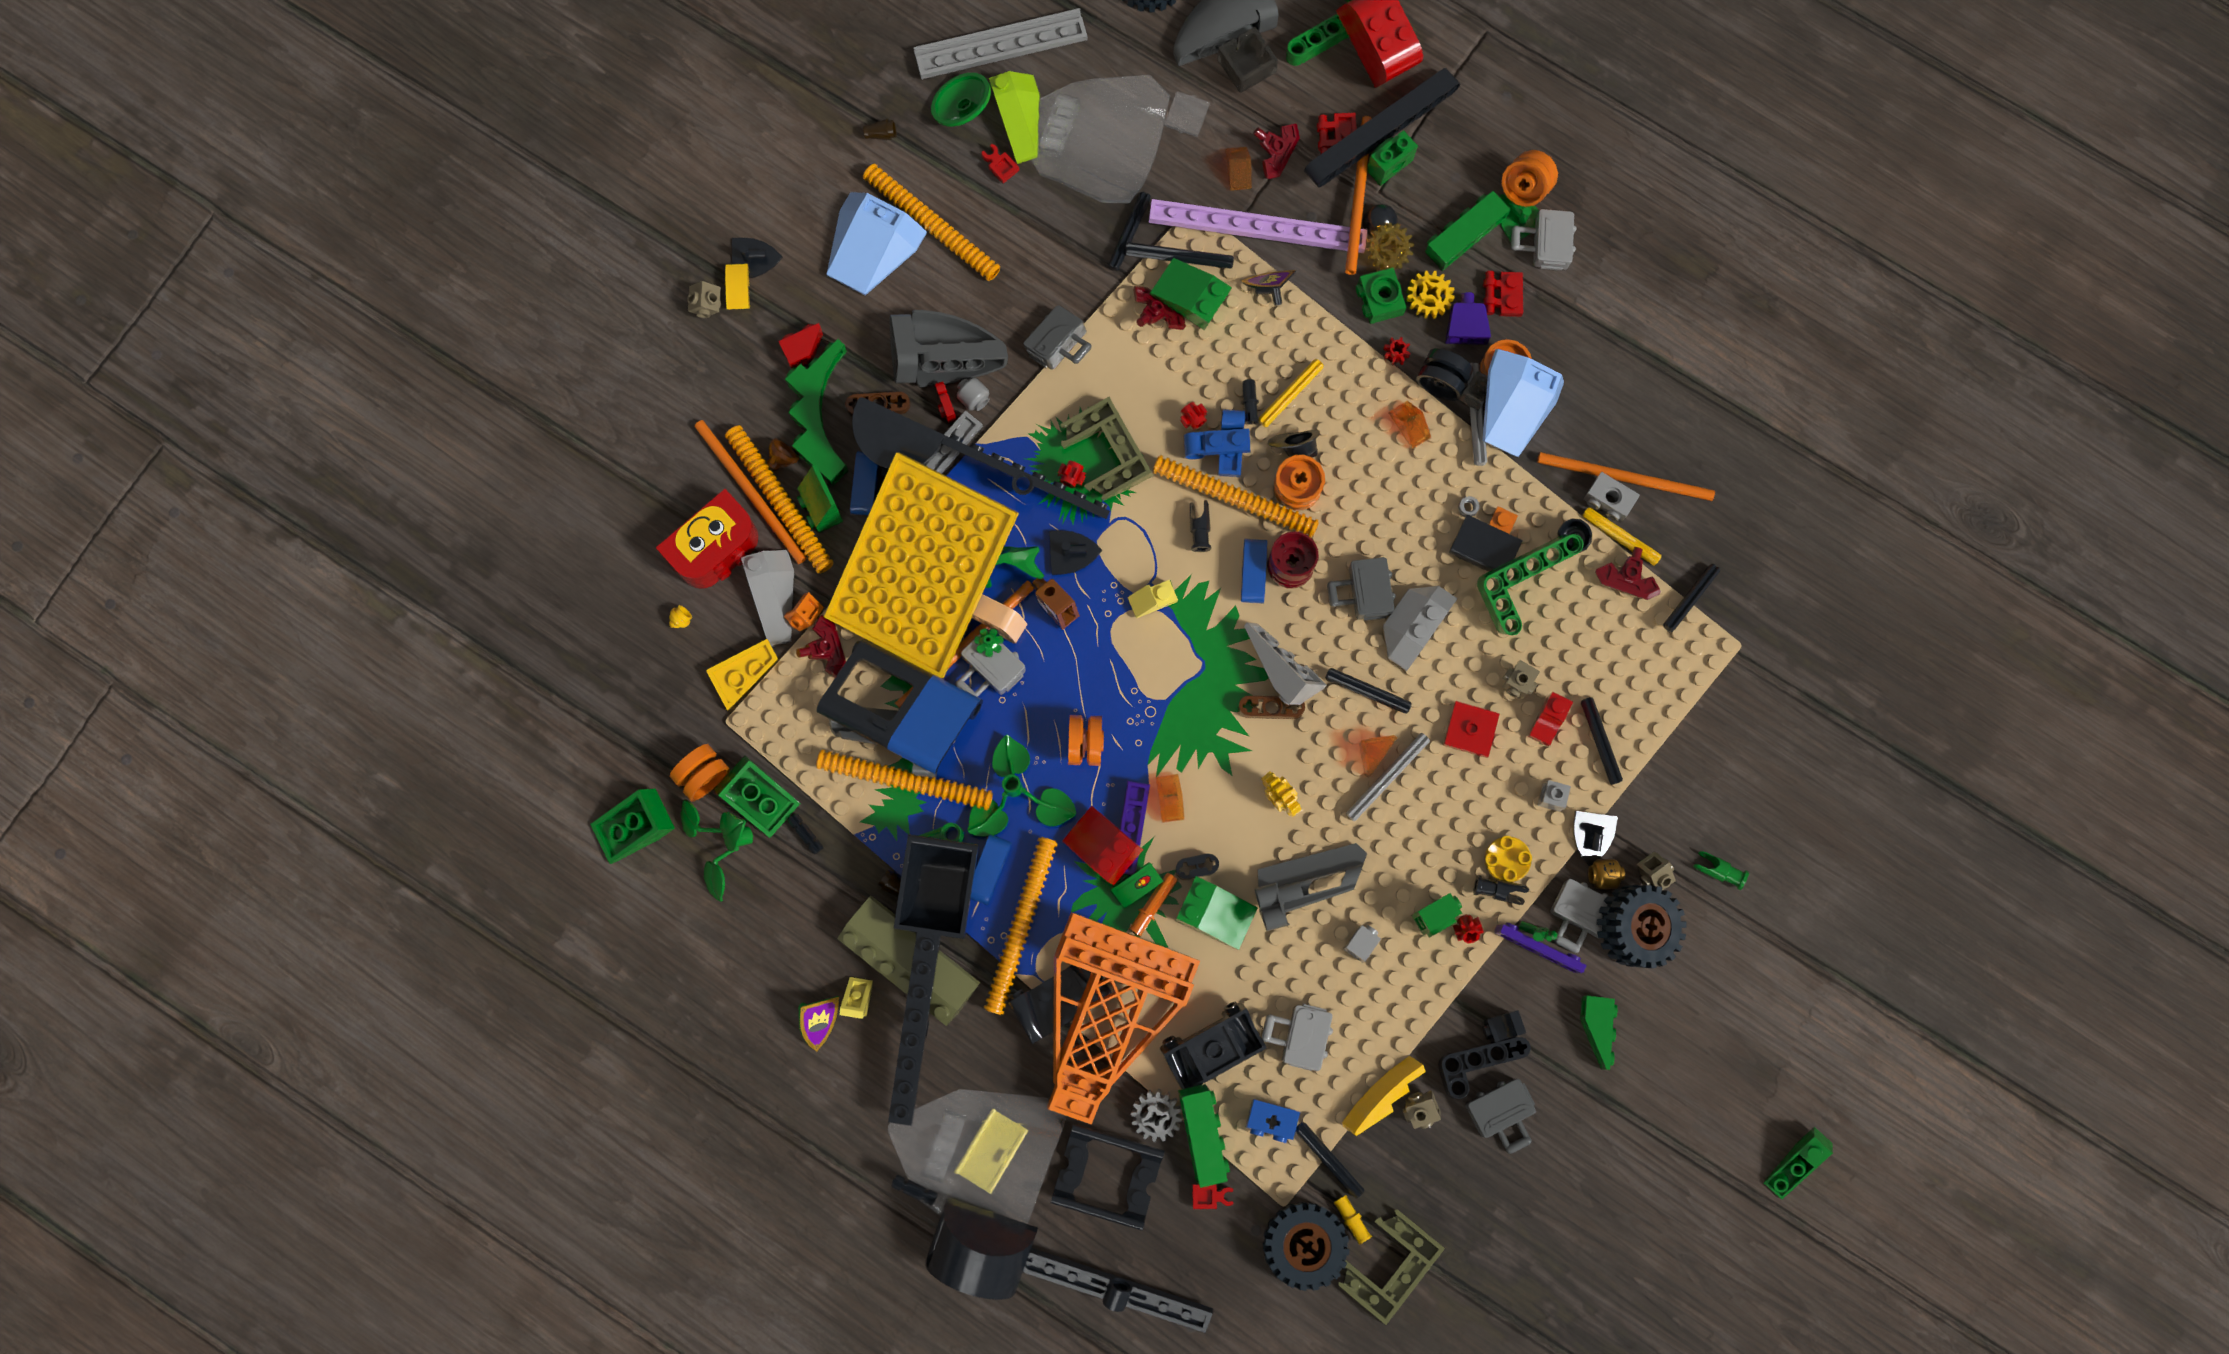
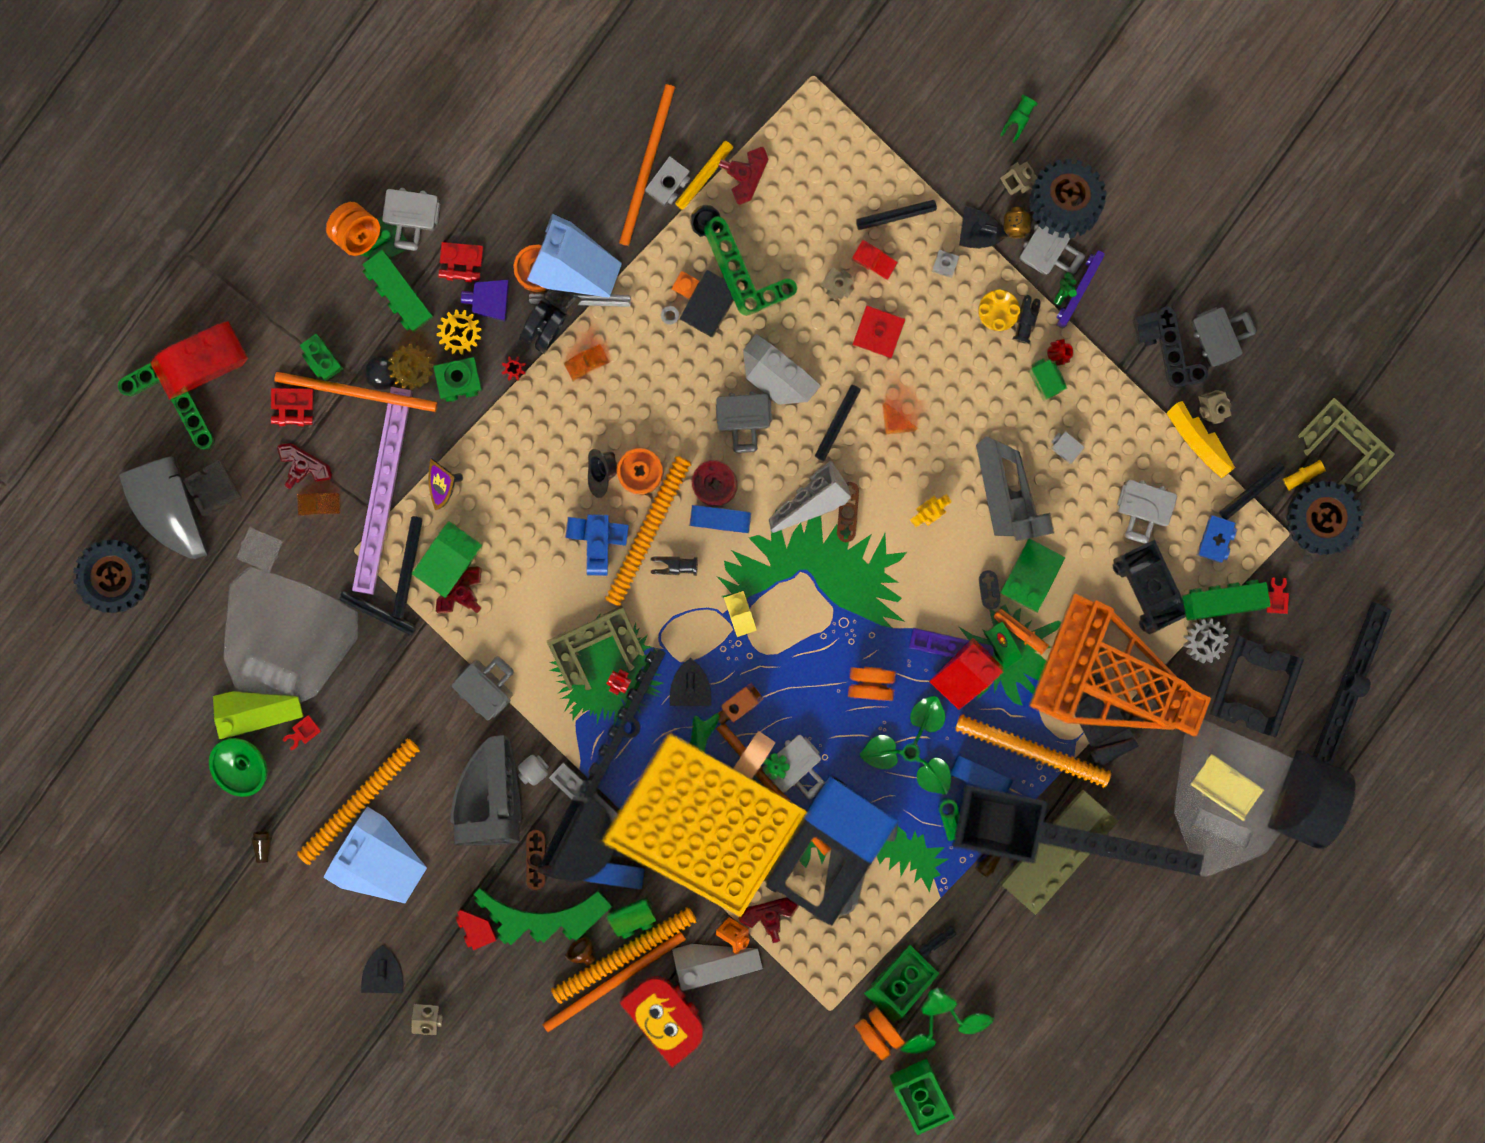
camera: 80 degrees left, 10 degrees up
(679, 617) = (731, 1049): yellow plate -> none
(737, 286) = (412, 988): yellow slope -> none
(739, 673) = (785, 994): yellow wing -> none
(817, 1021) = (1106, 935): shield -> none
(856, 998) = (1088, 900): light yellow slope -> none
(903, 779) = (896, 850): light orange piece -> none
(914, 1190) = (1258, 855): black axle -> none
(945, 408) = (544, 795): red plate -> none
(1000, 43) = (178, 726): light grey plate -> none
(1170, 798) = (925, 610): clear orange slope -> none
(1193, 415) = (568, 564): red gear -> none
(1250, 401) = (556, 510): black axle -> none
(1290, 393) = (549, 471): yellow axle -> none
(1382, 127) = (290, 363): black beam -> none
(1387, 777) = (922, 416): light grey axle -> none
(1597, 1020) = (1145, 243): green slope -> none
(1691, 598) = (768, 118): black axle -> none
(1799, 1162) = (1279, 79): green slope -> none

